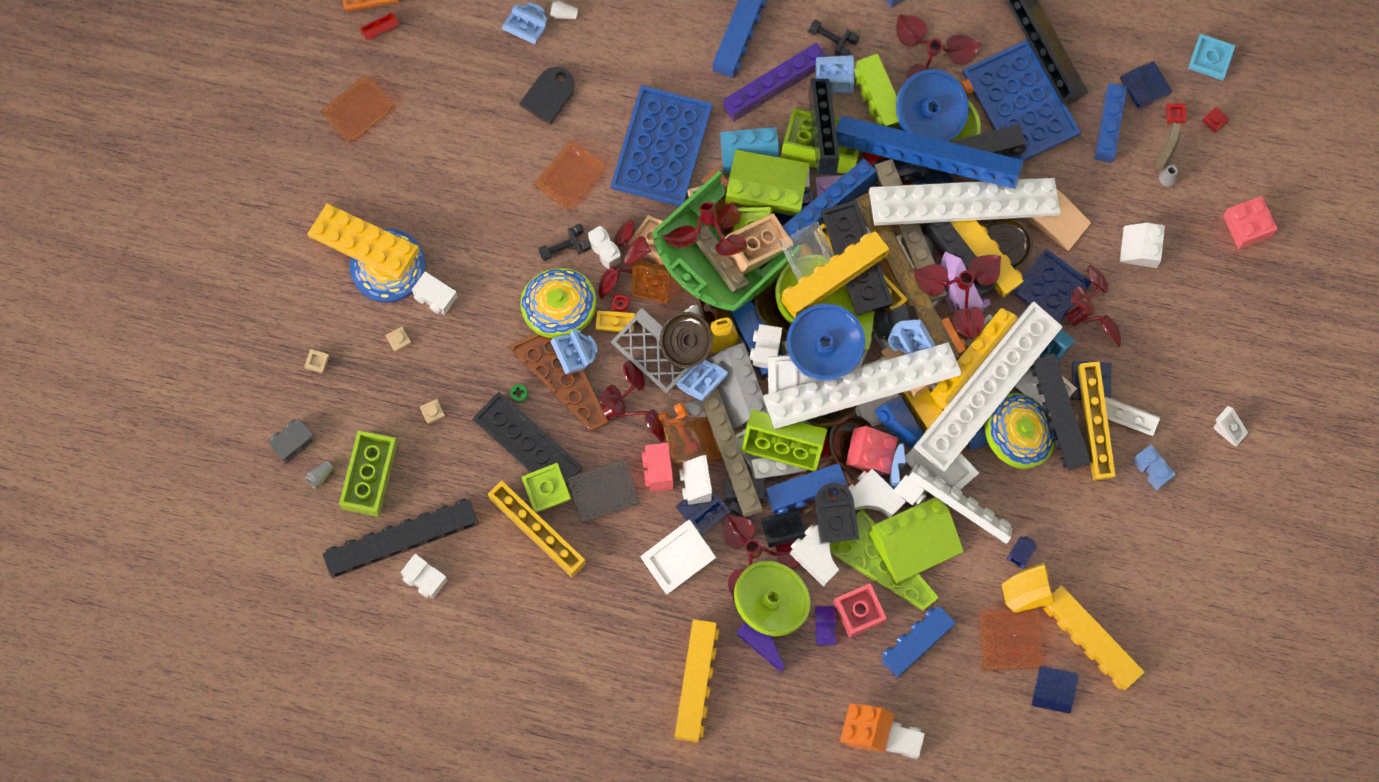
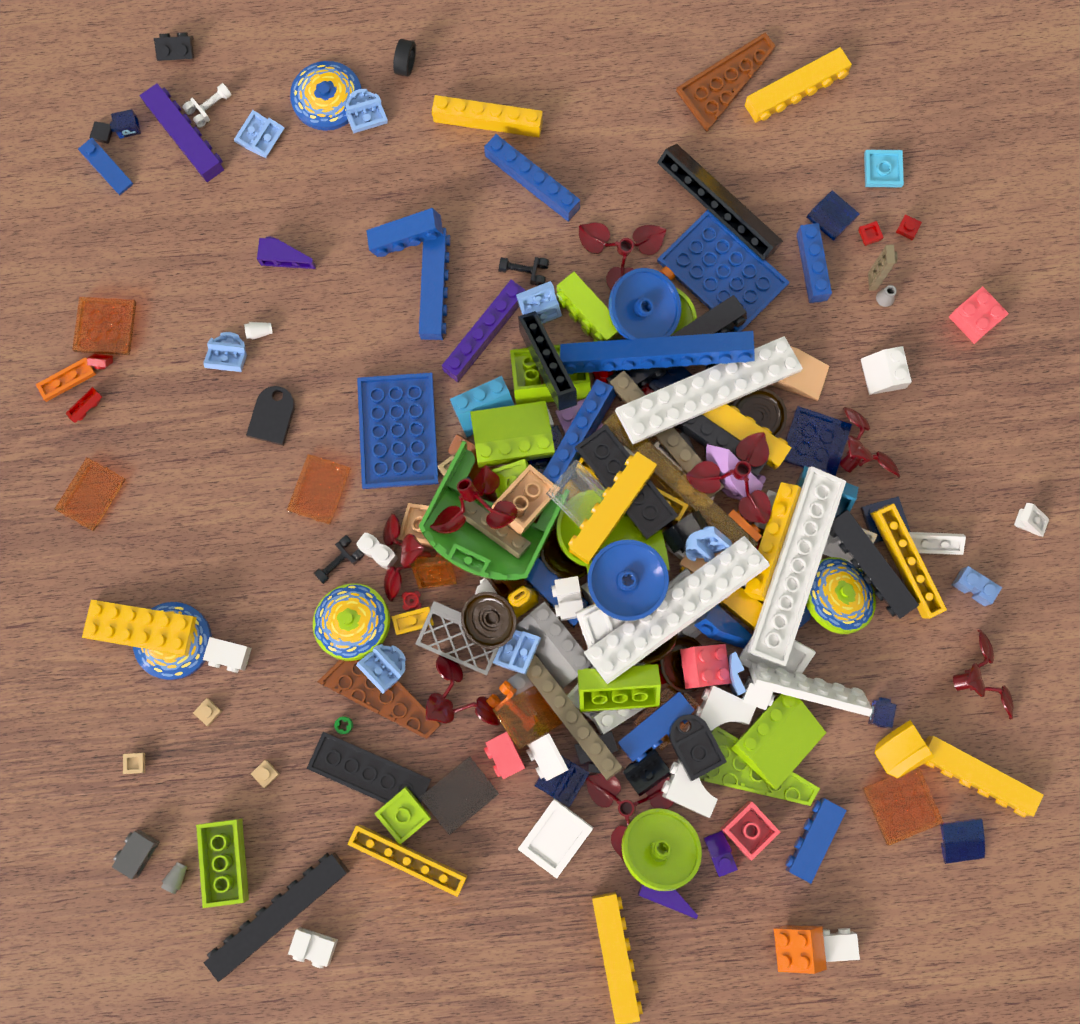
camera: 15 degrees left, 5 degrees up
(1114, 547) = (973, 679): none -> dark red plant

